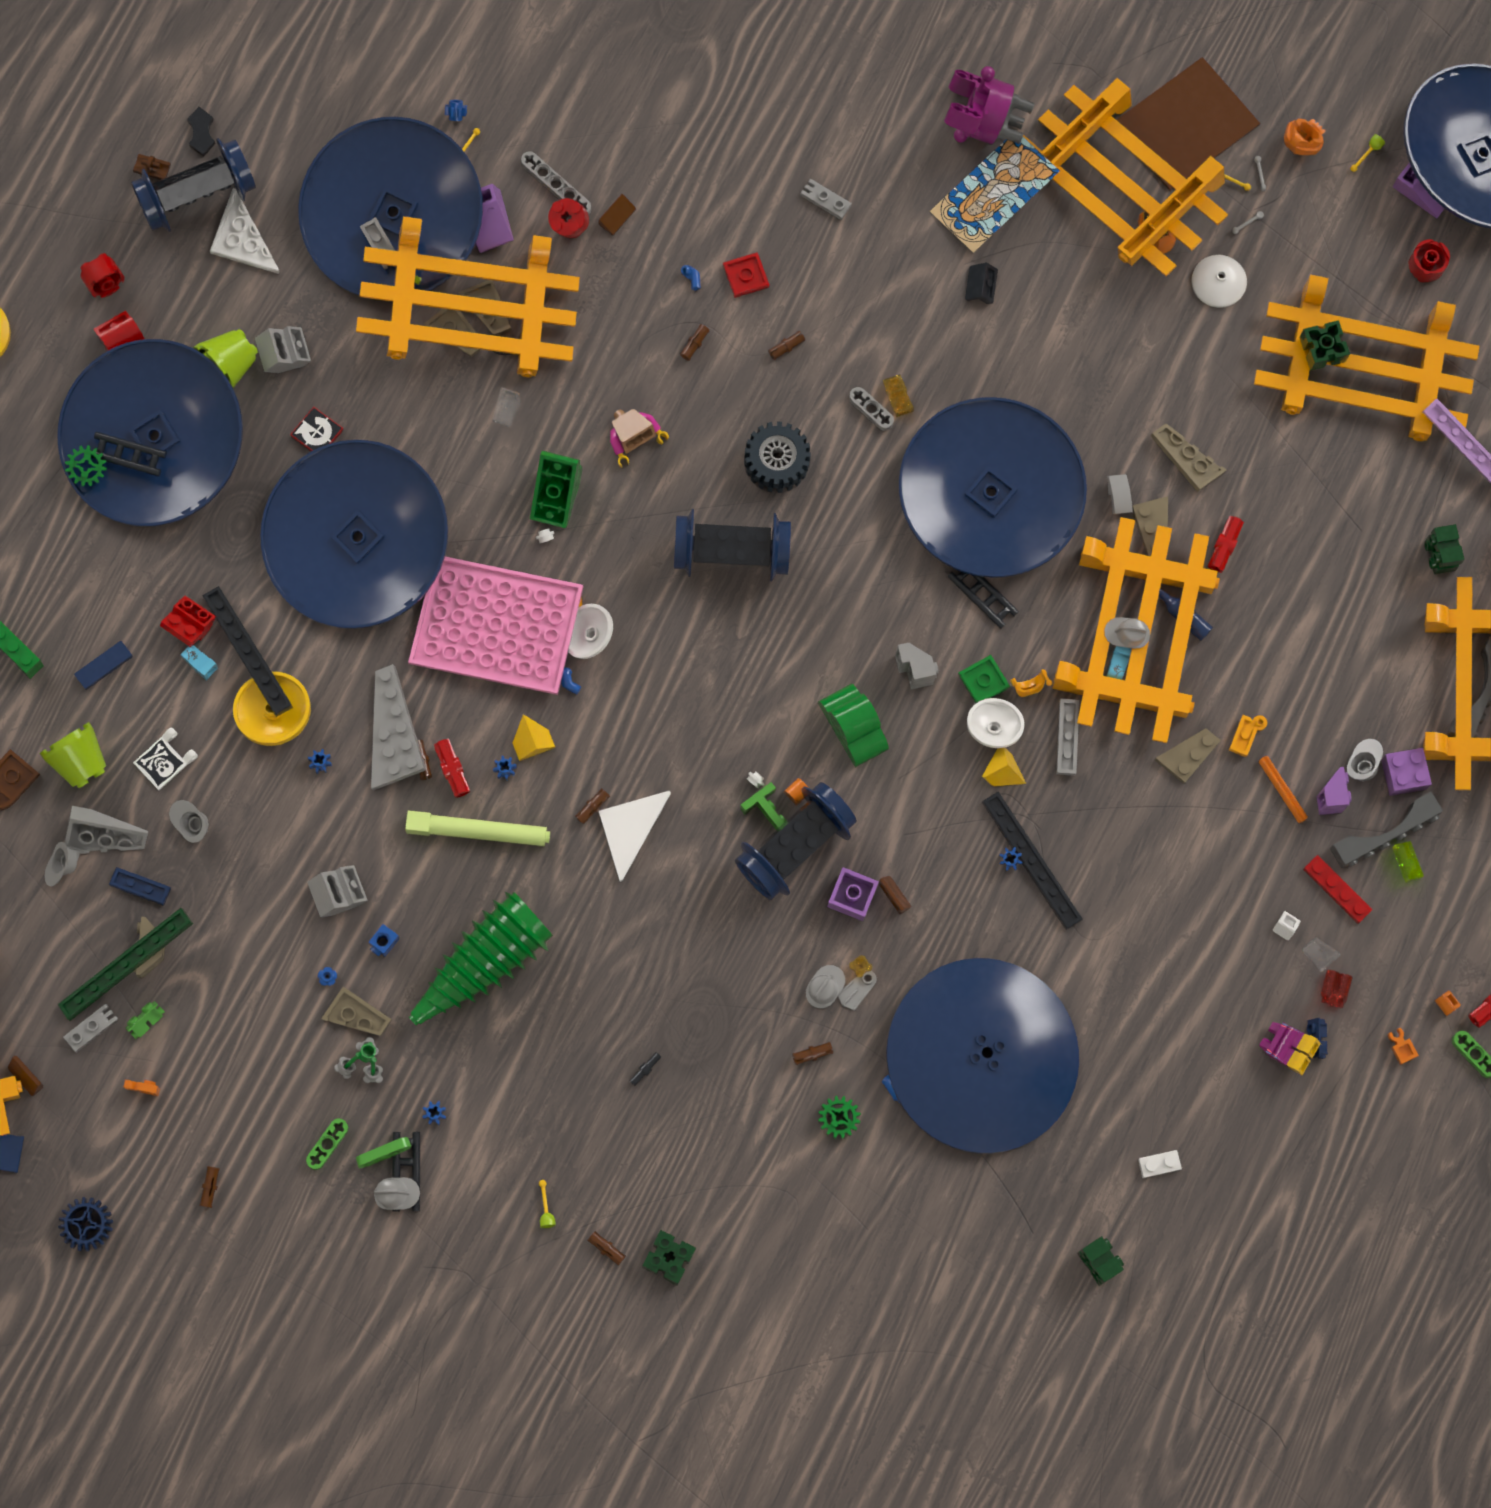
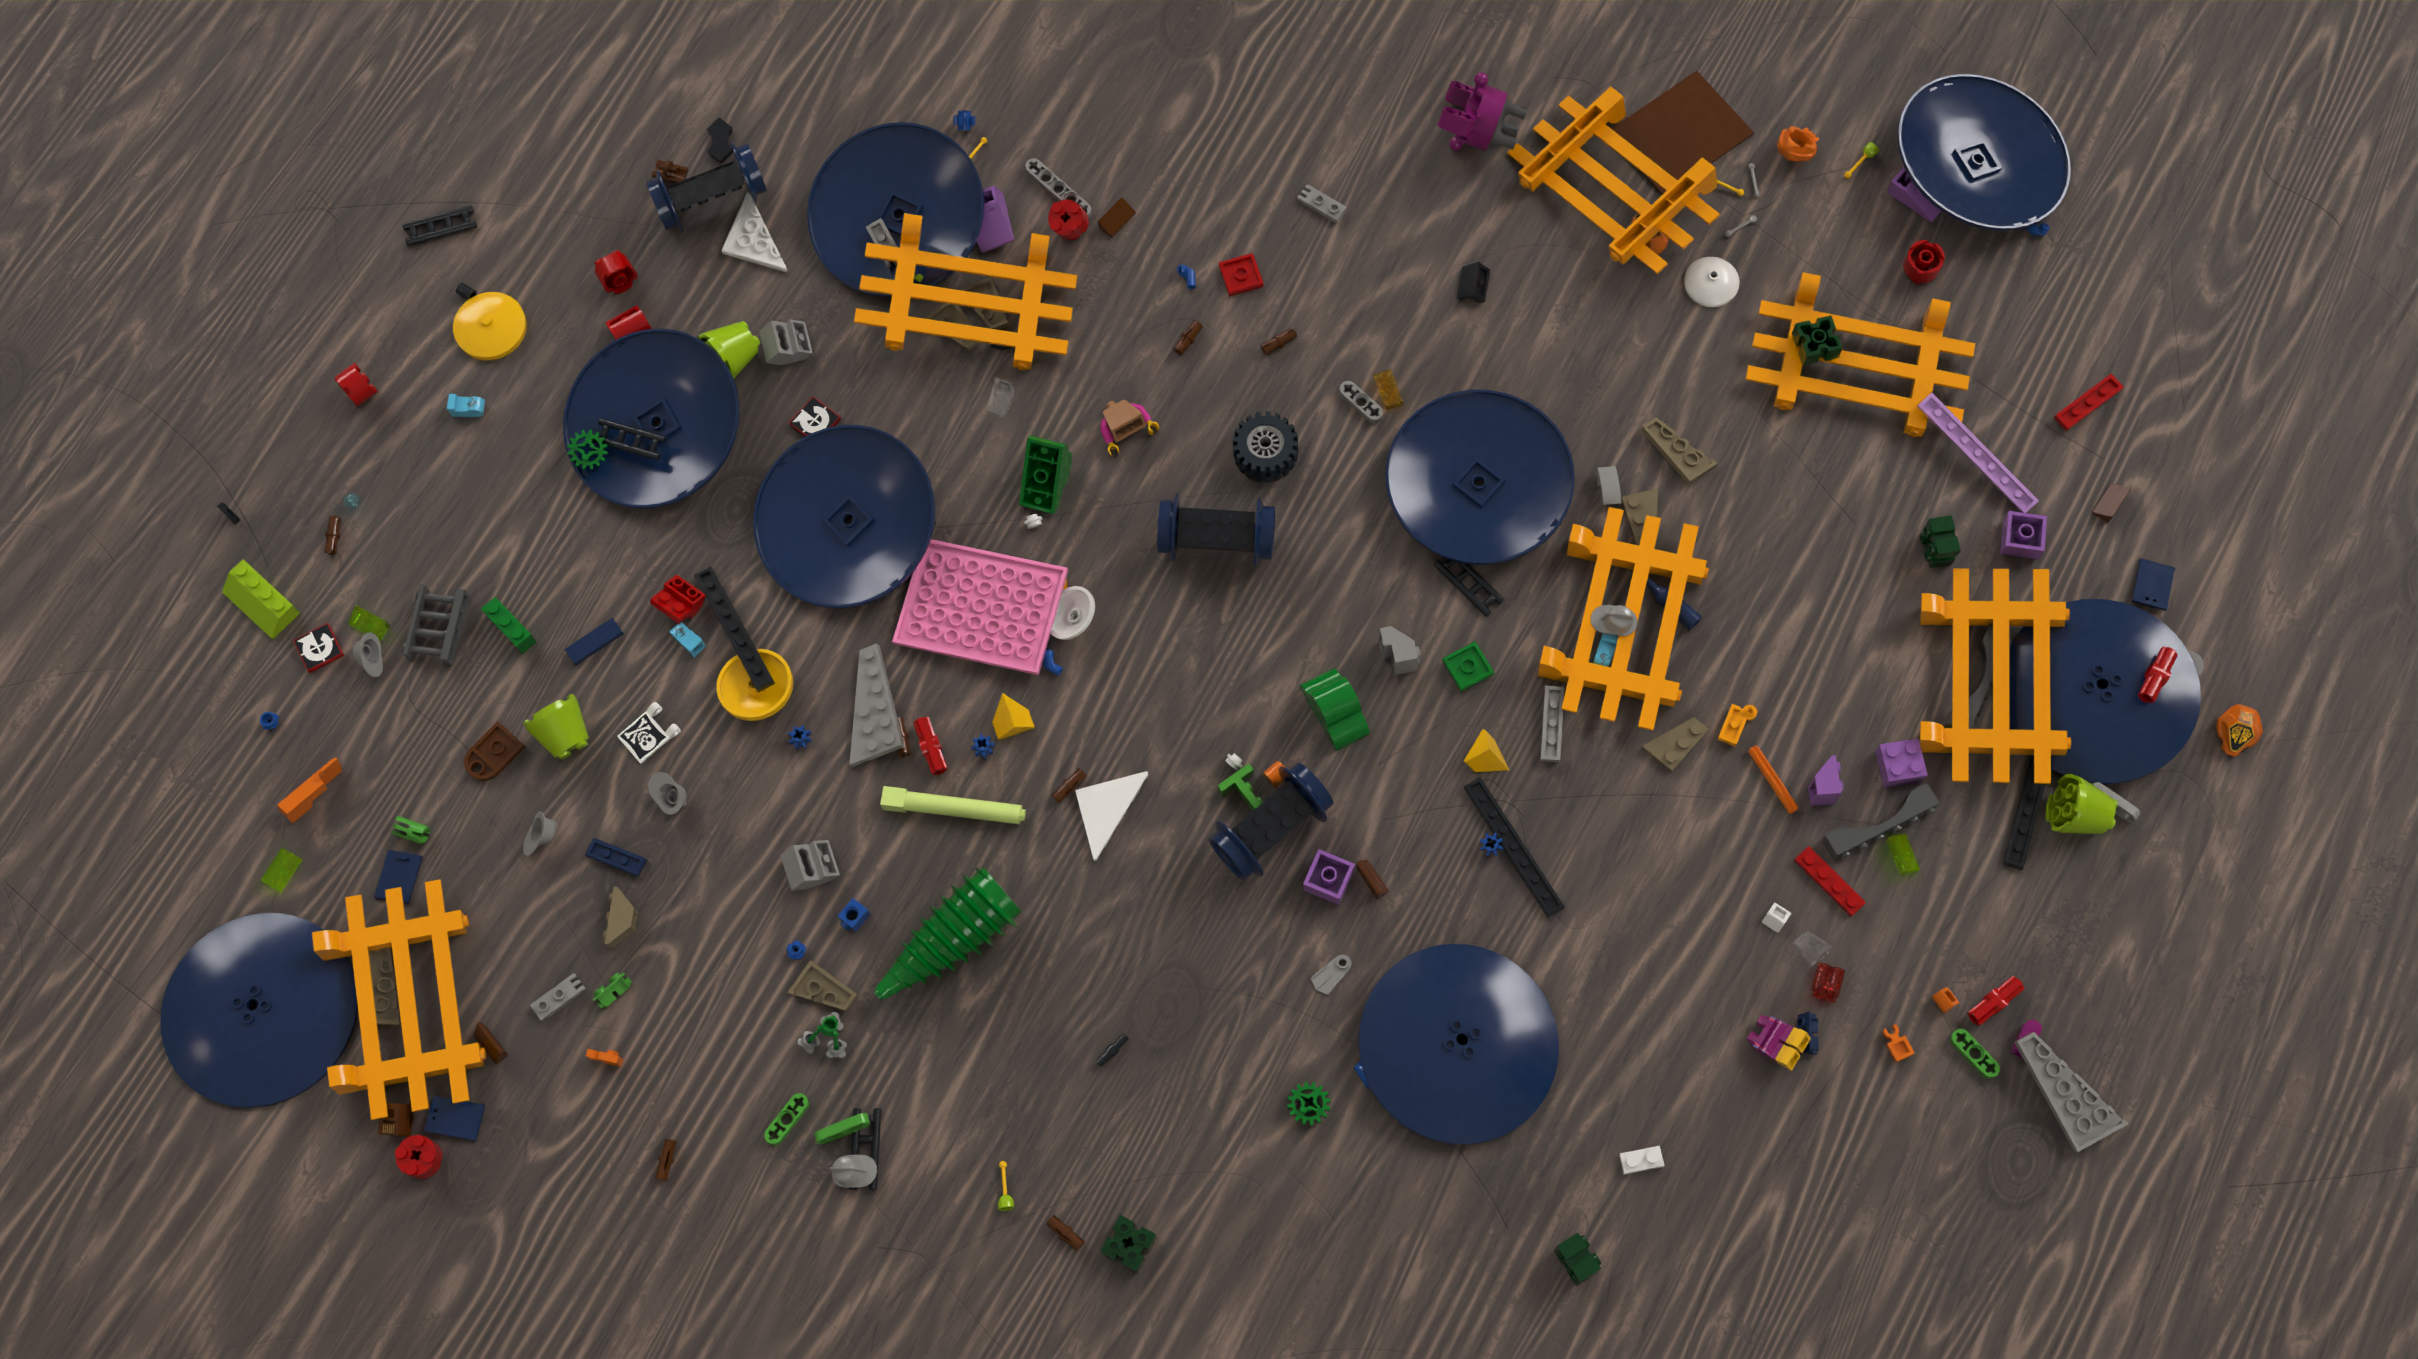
camera: 15 degrees right, 5 degrees down
(87, 1215) = (537, 1202): dark blue gear -> none
(96, 831) = (574, 802): light grey wedge -> none
(125, 964) = (594, 933): dark green tile -> none
(436, 1118) = (894, 1084): blue gear -> none
(812, 1053) = (1283, 1037): reddish brown pin -> none
(825, 986) = (1299, 970): light grey piece -> none
(861, 960) = (1336, 944): clear yellow plate -> none
(994, 192) = (1487, 195): sticker -> none
(995, 715) = (1478, 708): white dish -> none
(1023, 688) = (1515, 673): light orange helmet -> none
(1225, 544) = (1716, 535): red piece -> none
(1365, 760) = (1858, 750): light grey piece -> none

